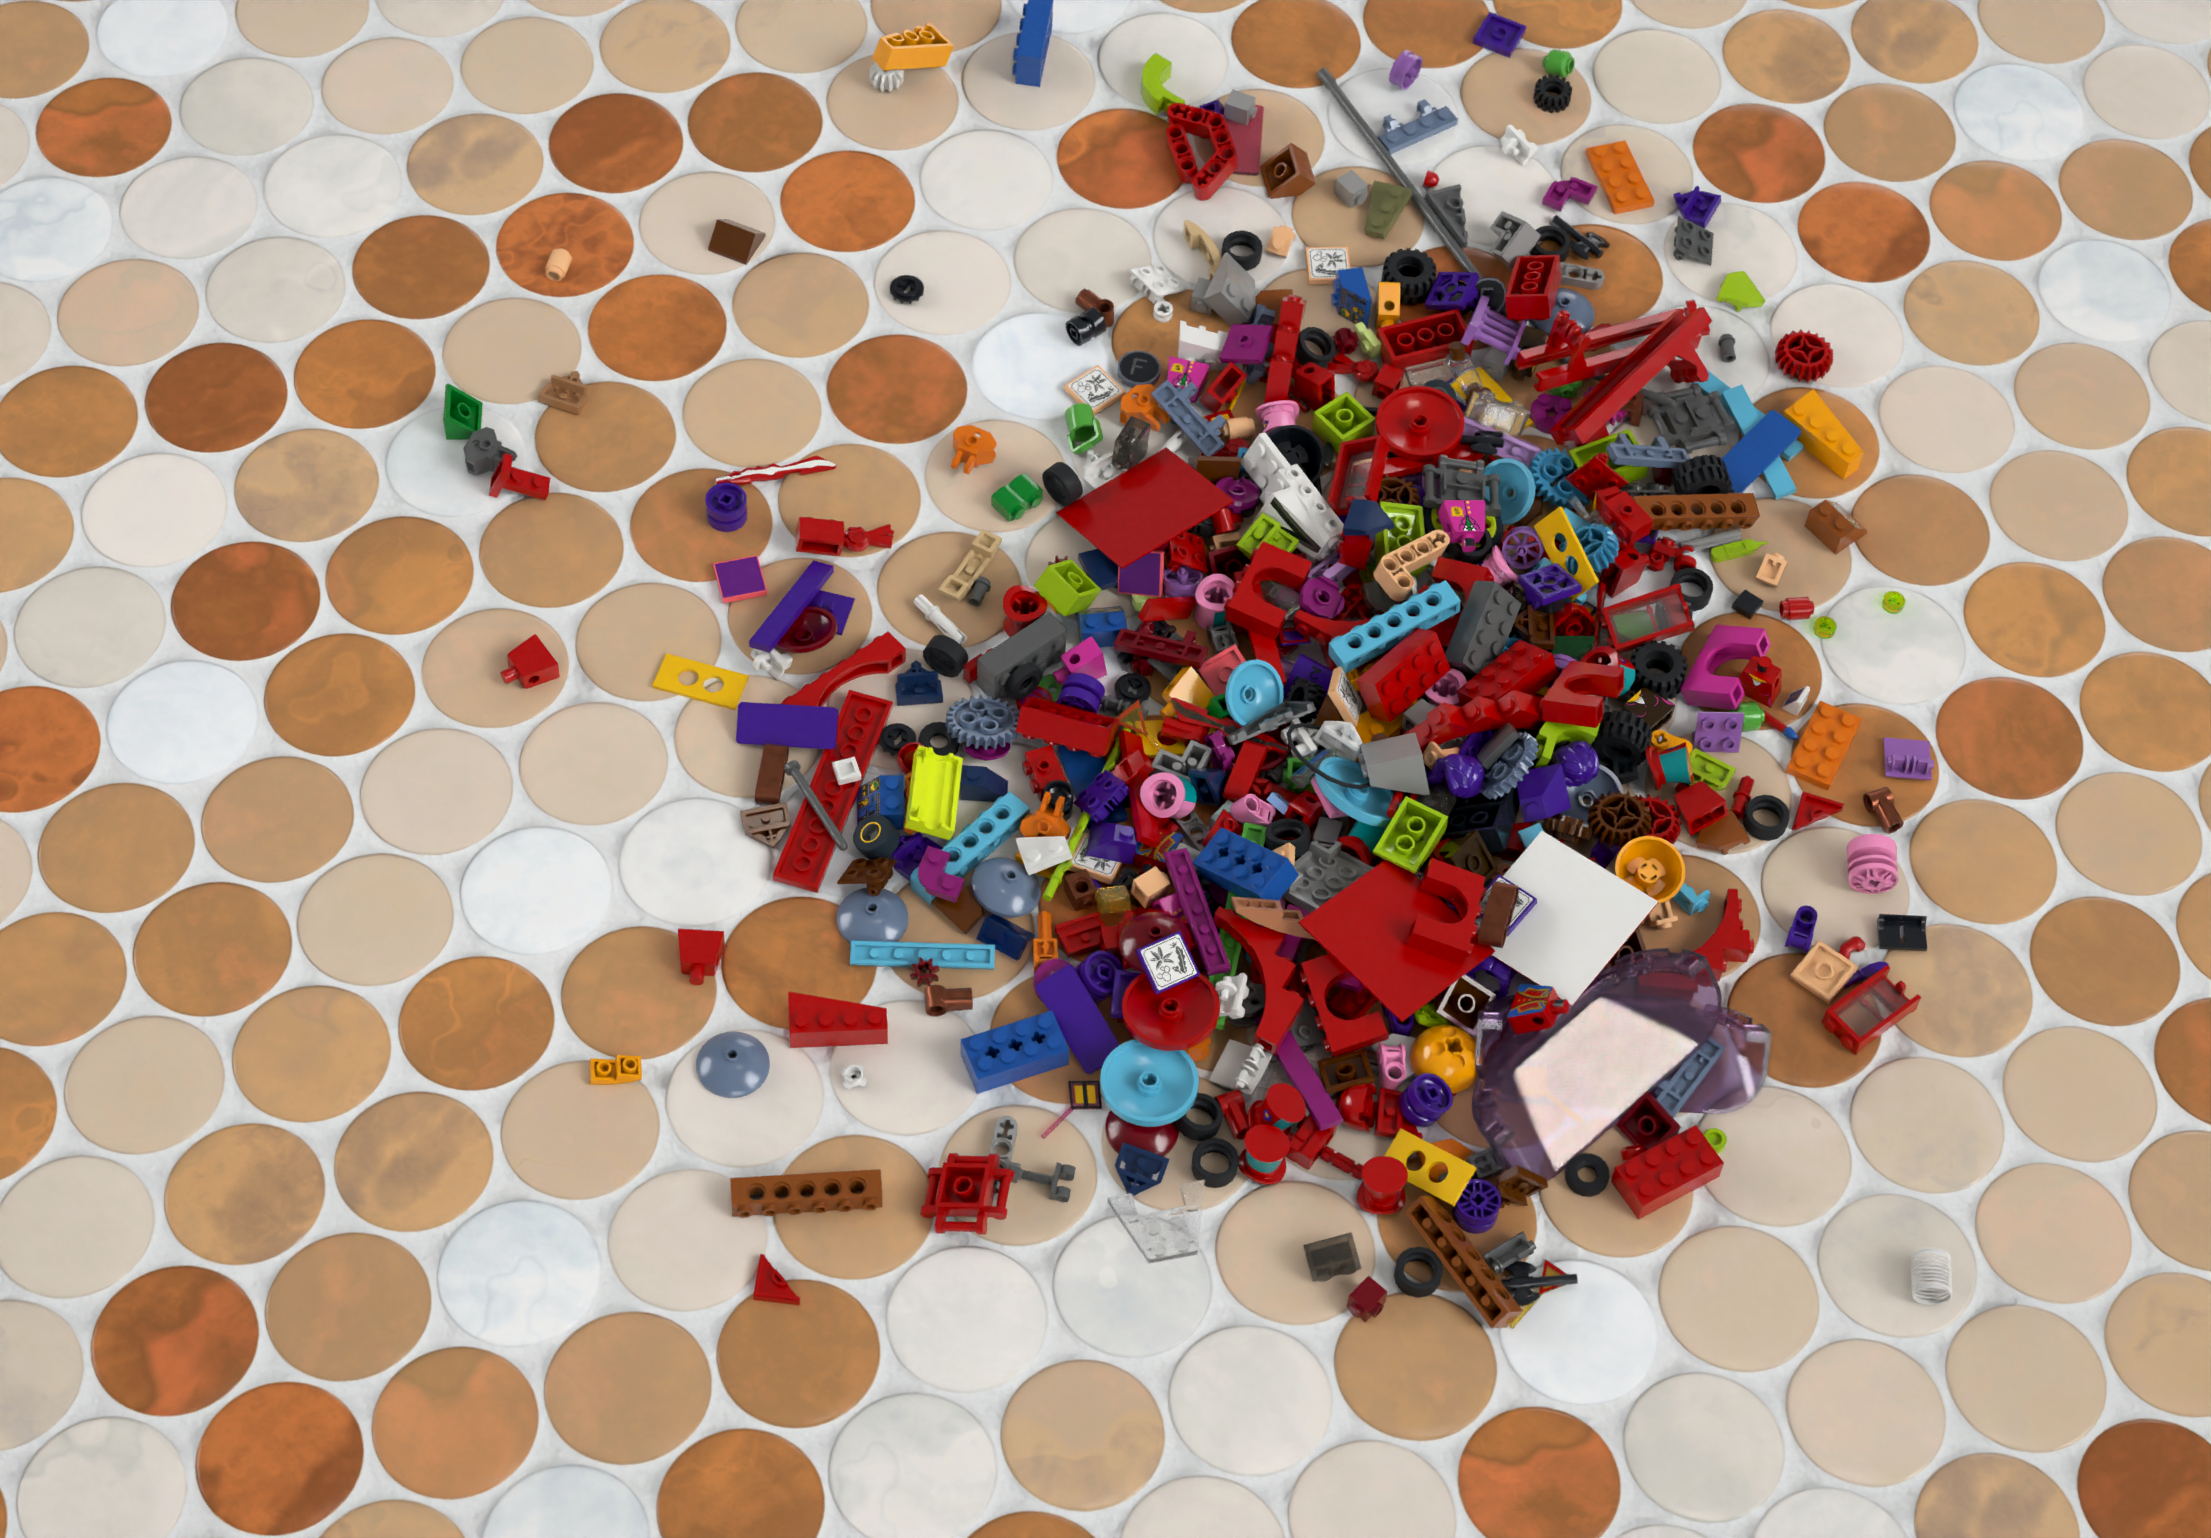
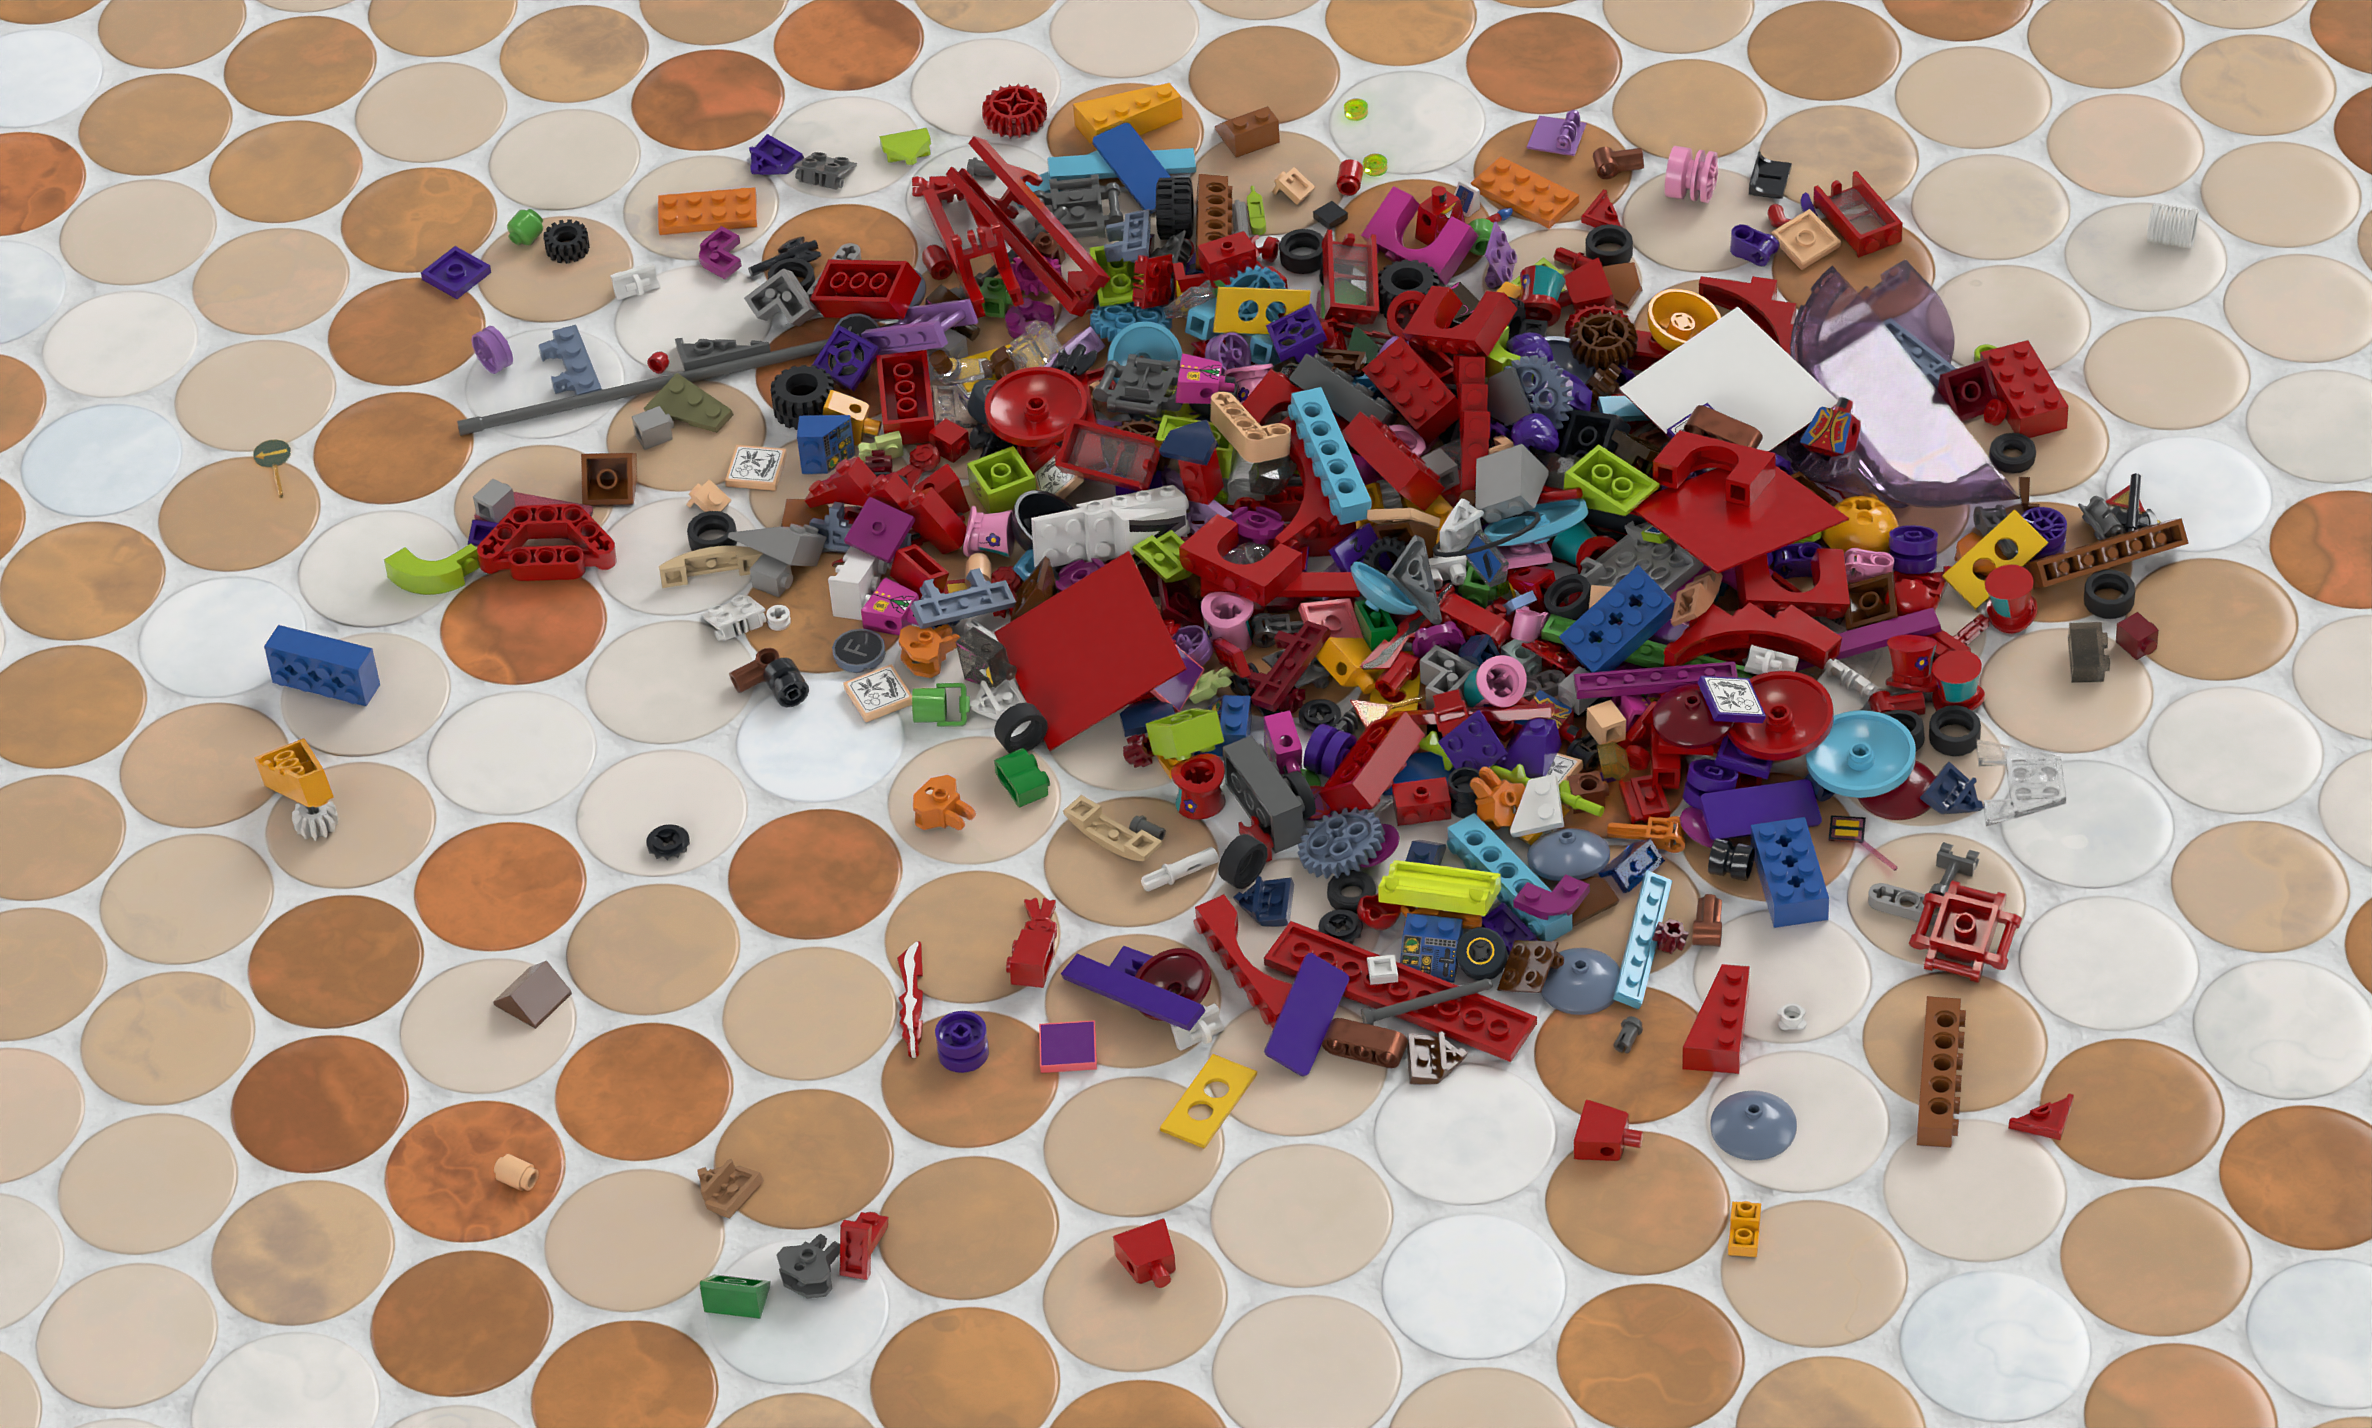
camera: 70 degrees left, 10 degrees down
(813, 958) = (1630, 1030): none -> dark grey pin
(1019, 1002) = (1729, 859): none -> black wheel

